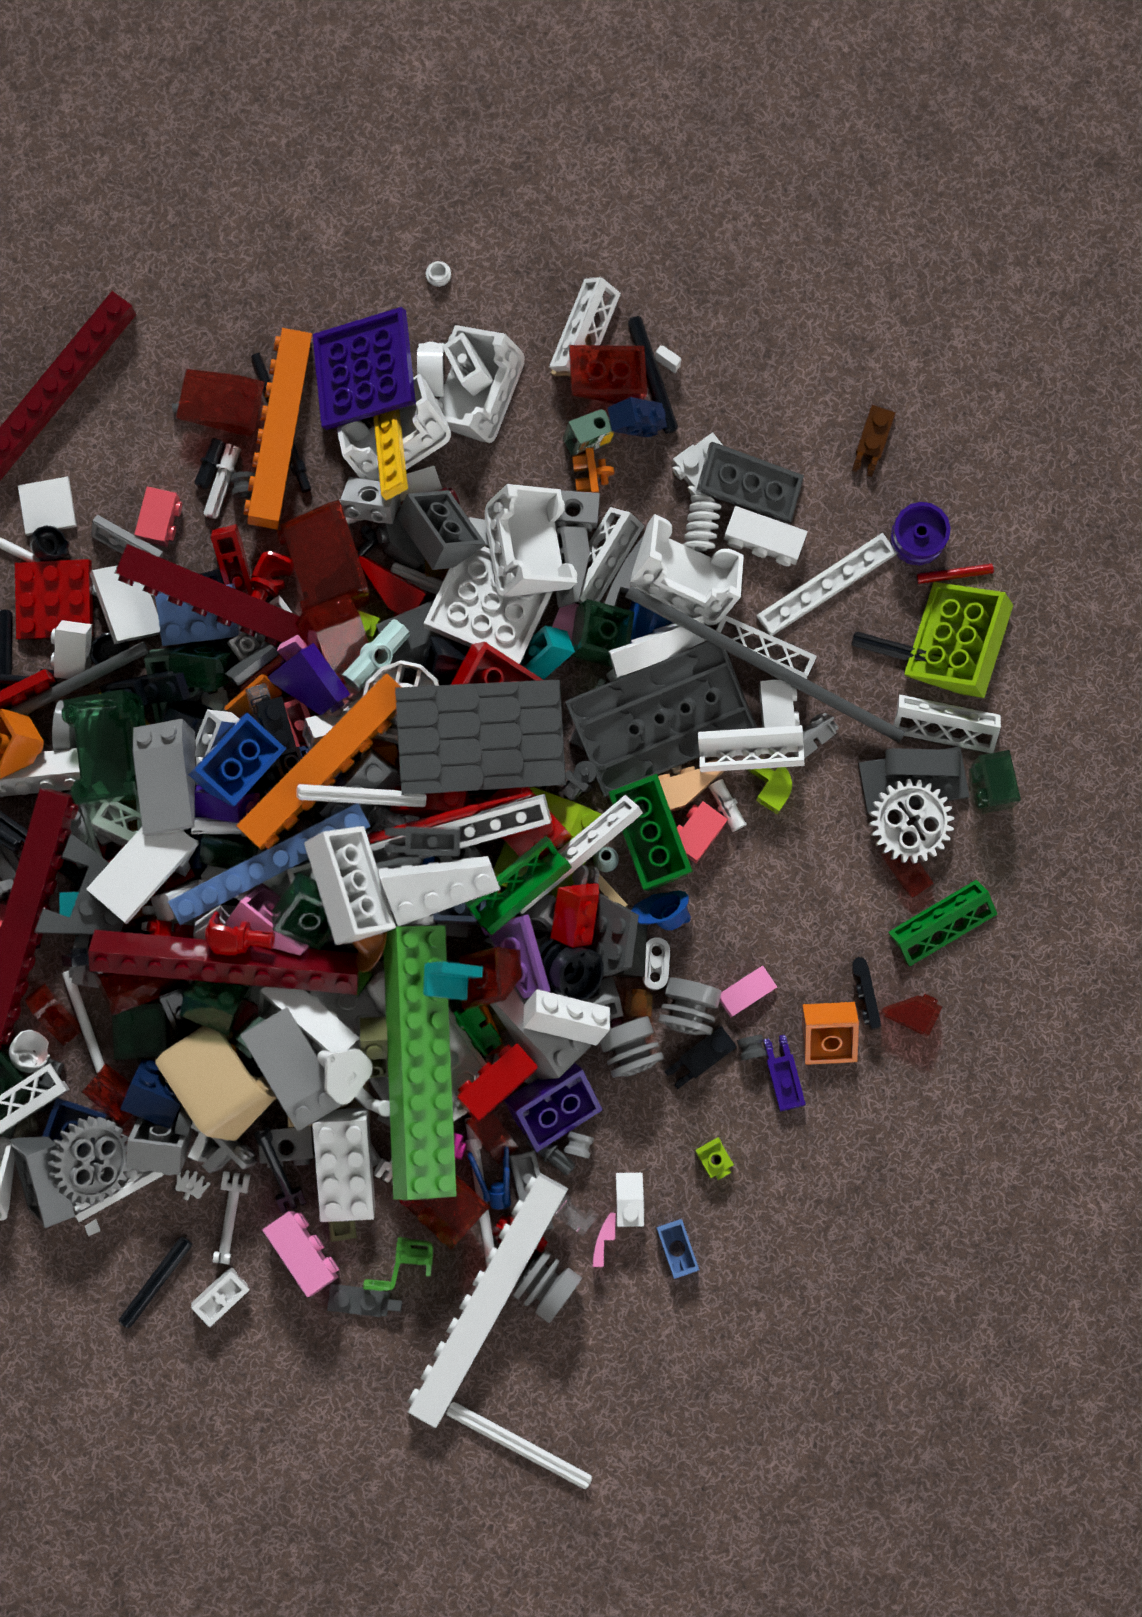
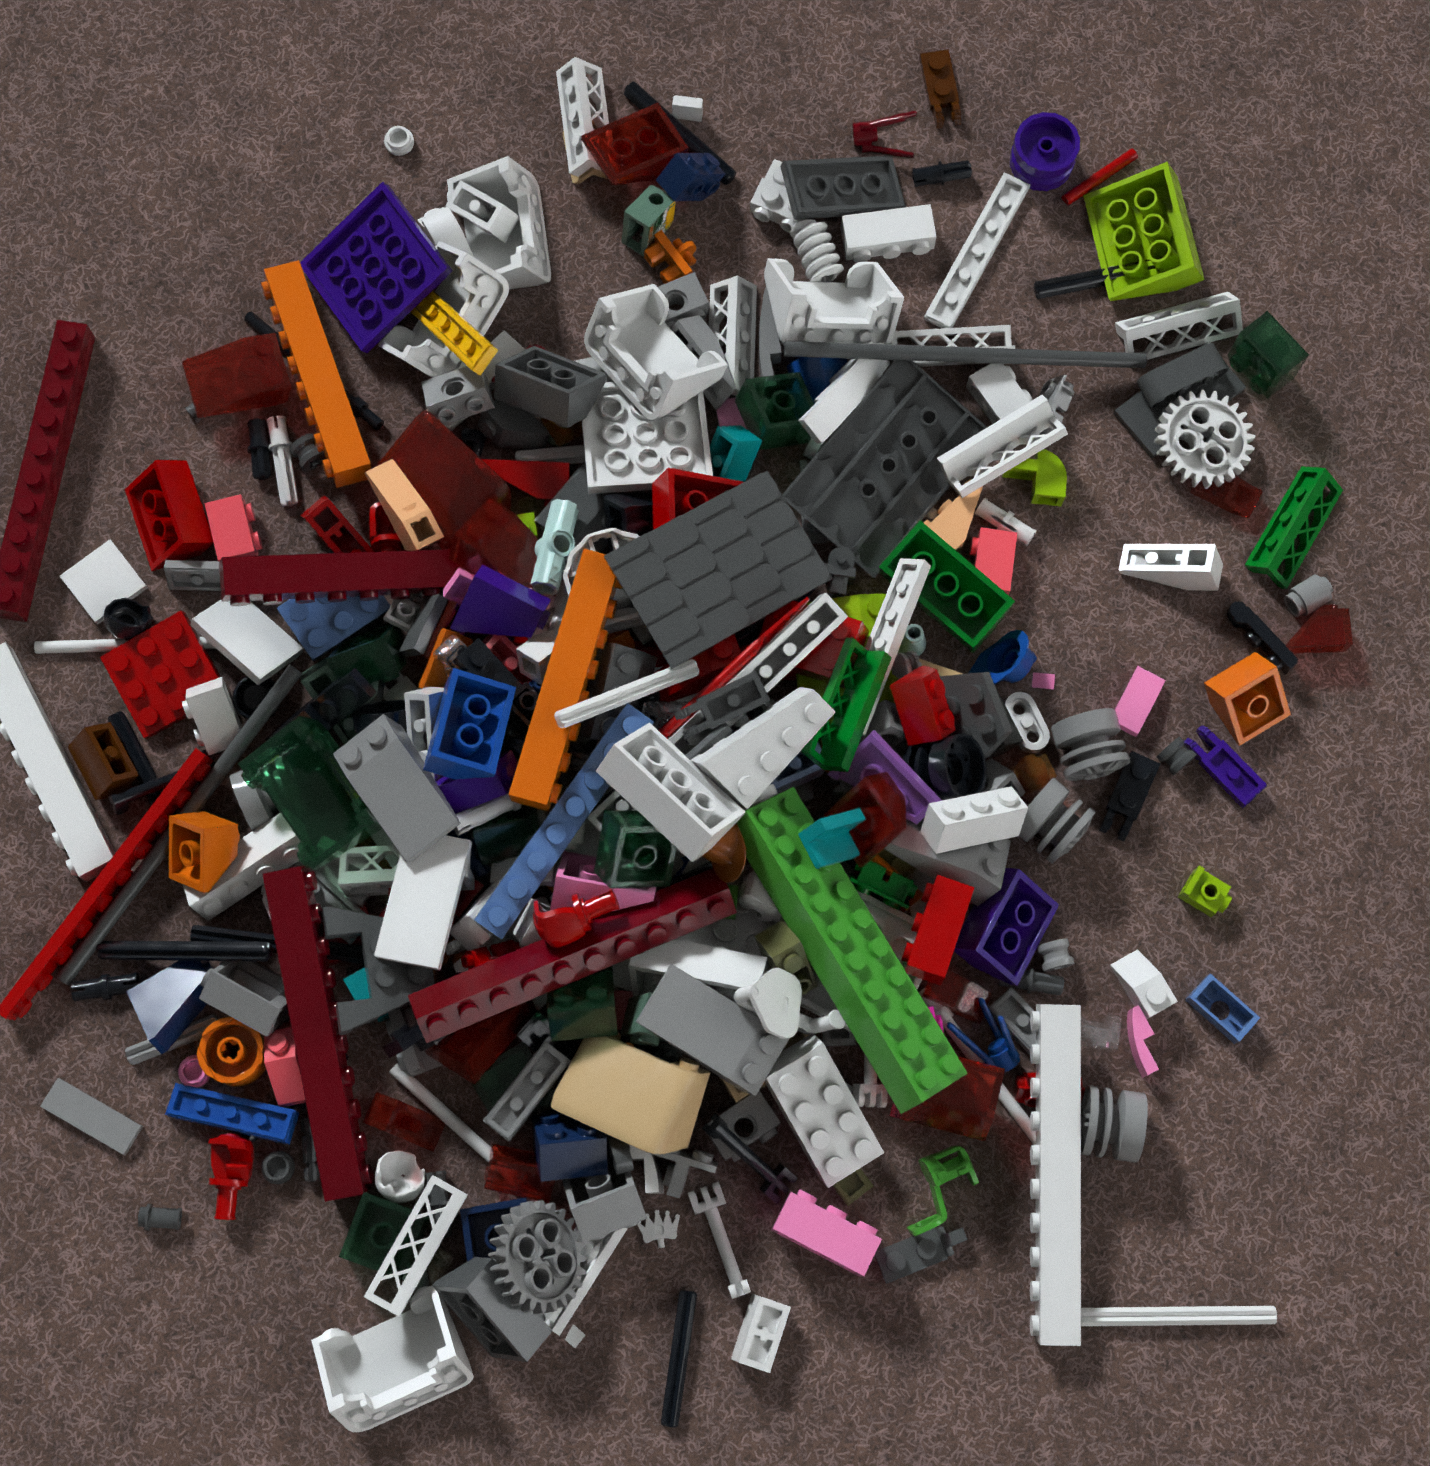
camera: 30 degrees left, 5 degrees down
(119, 479) = (168, 513): none -> red slope
(146, 1040) = (527, 1091): none -> light grey tile
(285, 566) = (404, 507): none -> light nougat slope
(687, 939) = (1043, 681): none -> bright pink piece
(794, 447) = (866, 133): none -> dark red plant
(833, 509) = (941, 173): none -> black axle
(833, 904) = (1174, 565): none -> white slope
(921, 980) = (1308, 595): none -> light grey brick

